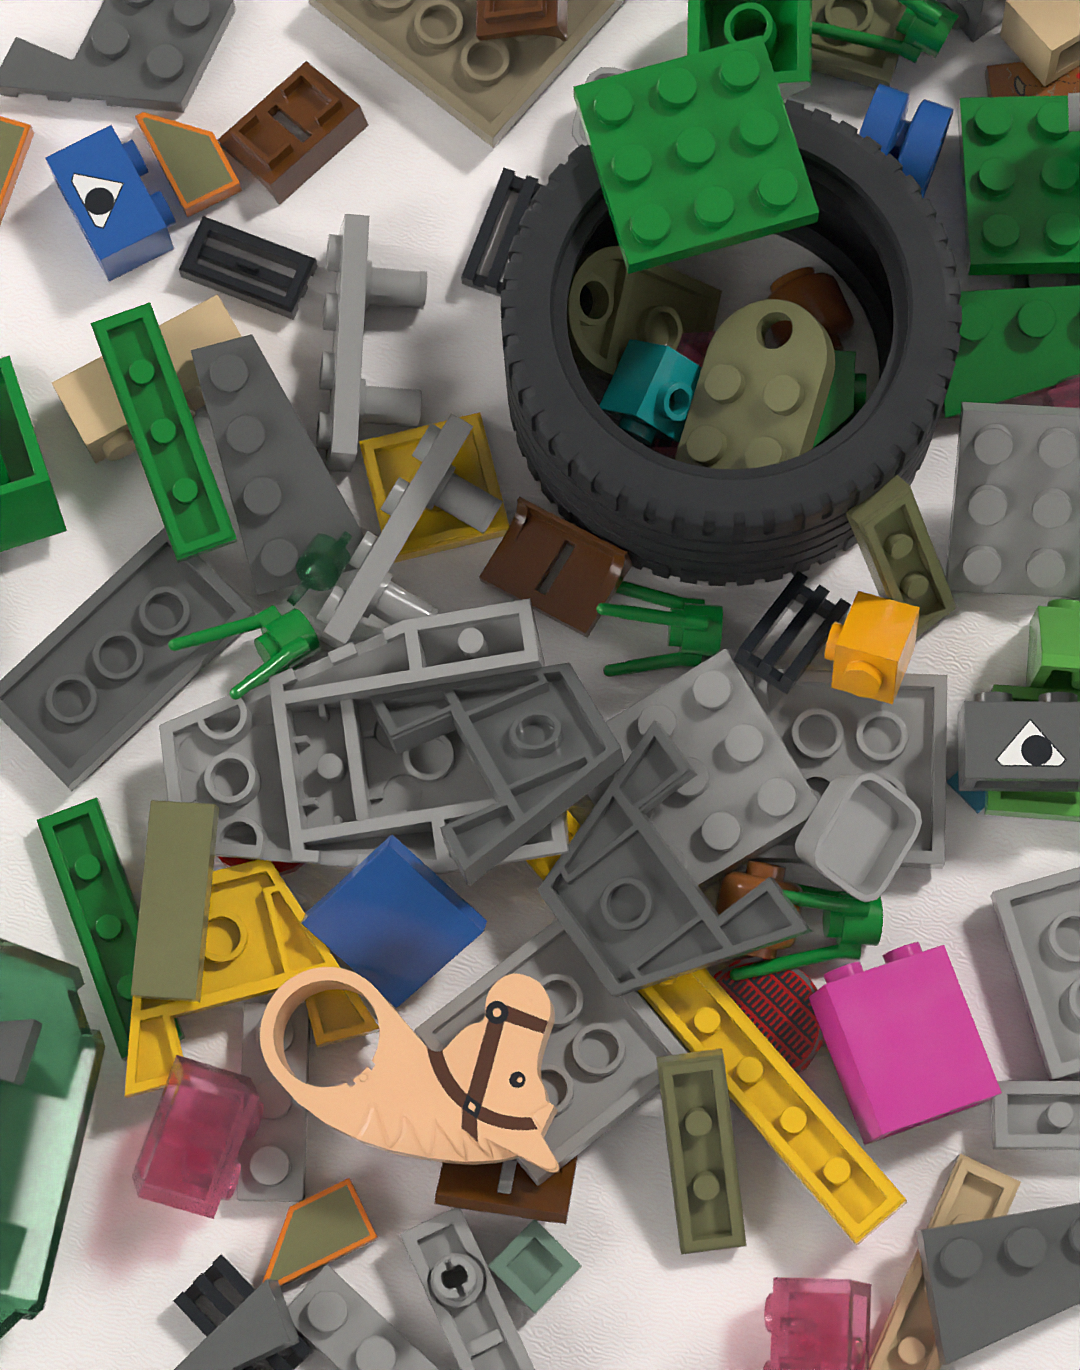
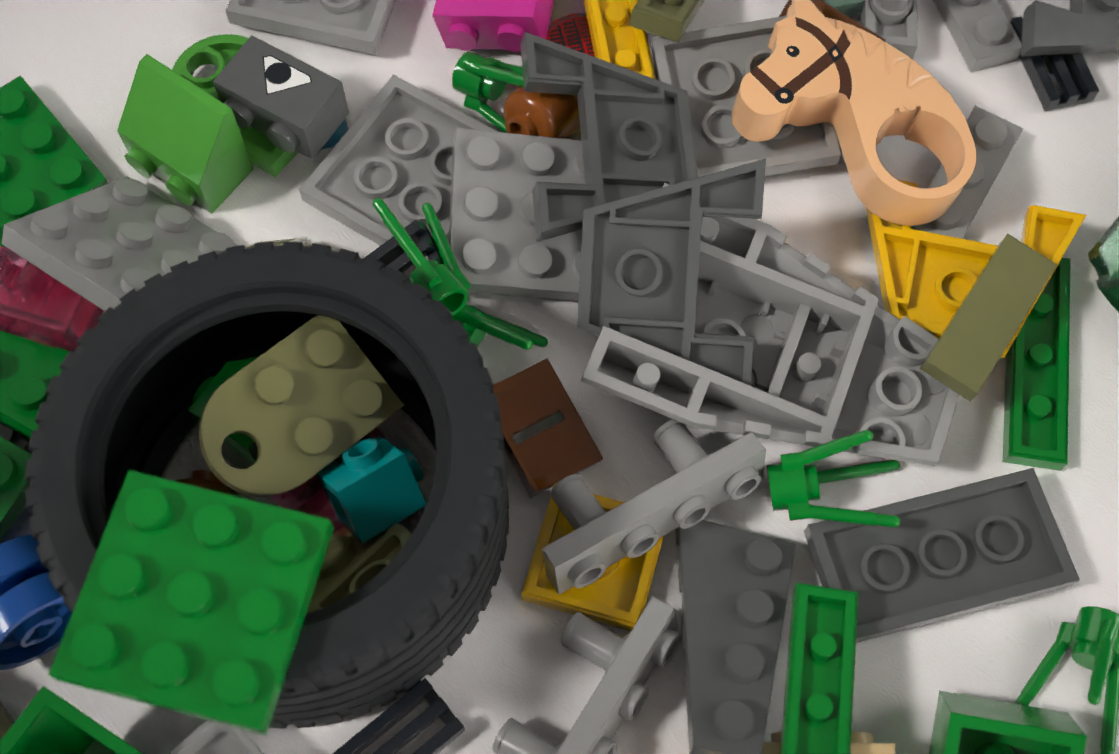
camera: 155 degrees left, 10 degrees down
(197, 1137) = (1044, 157): clear pink brick -> none
(320, 1233) = (977, 82): olive tile -> none
(321, 564) = (733, 522): clear green piece -> none
(394, 921) = (822, 225): blue tile -> none
(726, 614) = (441, 280): none -> green plant
(859, 834) = (444, 97): light grey piece -> none
(872, 647) = (339, 215): light orange brick -> none

